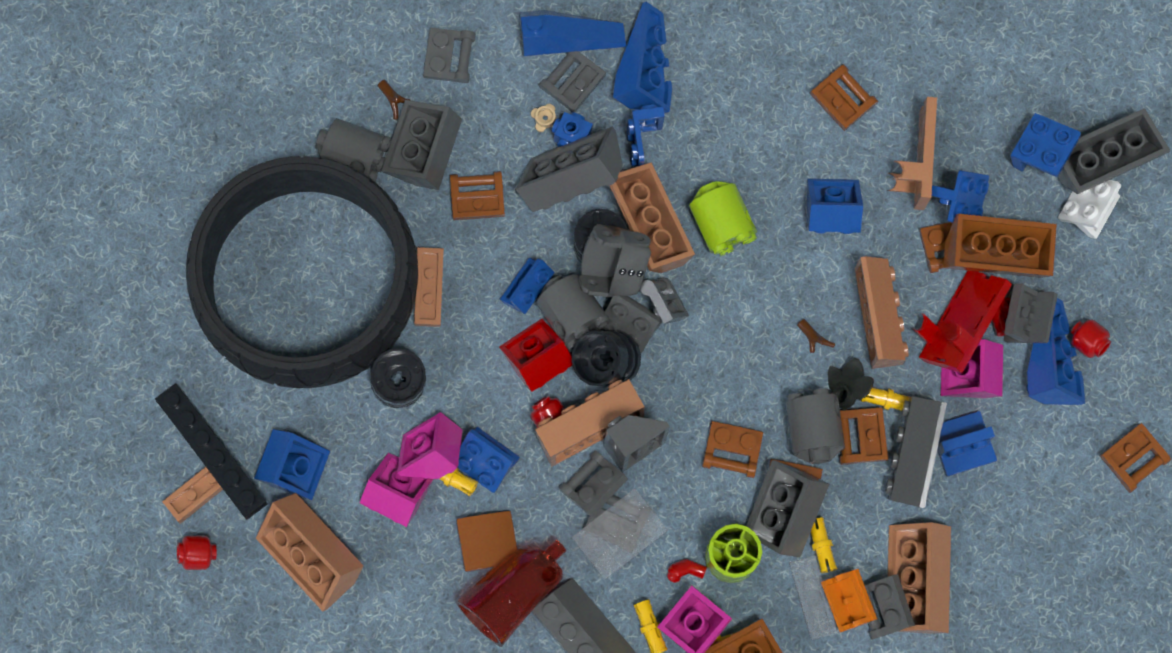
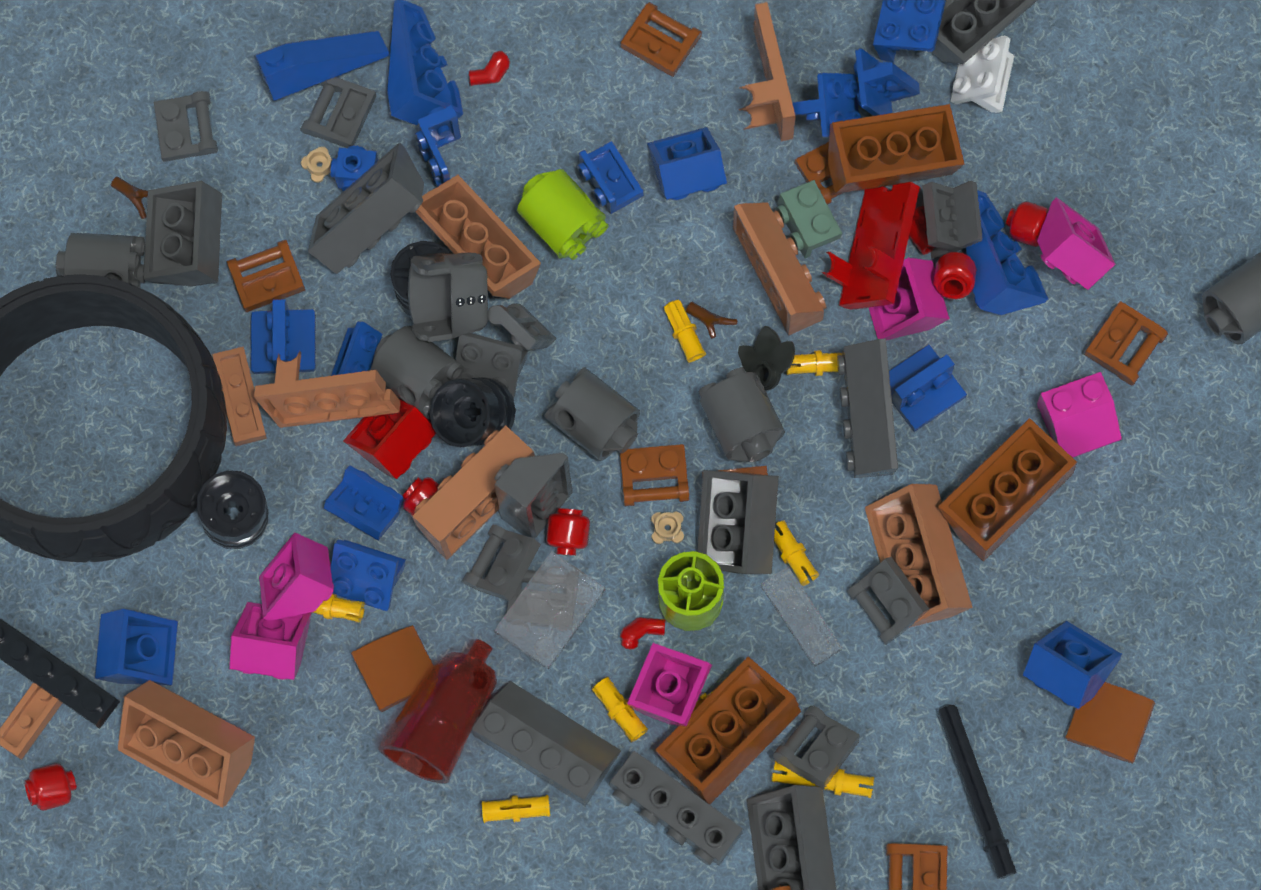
camera: 10 degrees left, 5 degrees down
(475, 252) = (282, 333): none -> blue bracket
(494, 313) = (323, 398): none -> nougat piece
(501, 403) = (364, 503): none -> blue bracket
(652, 474) = (568, 531): none -> red head
(700, 389) = (594, 415): none -> dark grey cylinder
(704, 83) = (493, 71): none -> red arm
(736, 489) = (674, 520): none -> tan plate
(770, 198) = (610, 177): none -> blue bracket
(791, 340) = (684, 331): none -> yellow axle
(849, 600) = (844, 606): orange hinge -> none
(870, 436) = (811, 412): dark orange plate -> none
(915, 280) = (808, 218): none -> sand green bracket
(1005, 547) = (1007, 489): none -> dark orange slope
(1006, 189) = (881, 84): none -> blue bracket
(1017, 363) = (955, 275): none -> red head
(1080, 506) = (1080, 415): none -> dark pink slope
(1119, 368) = (1074, 246): none -> dark pink slope

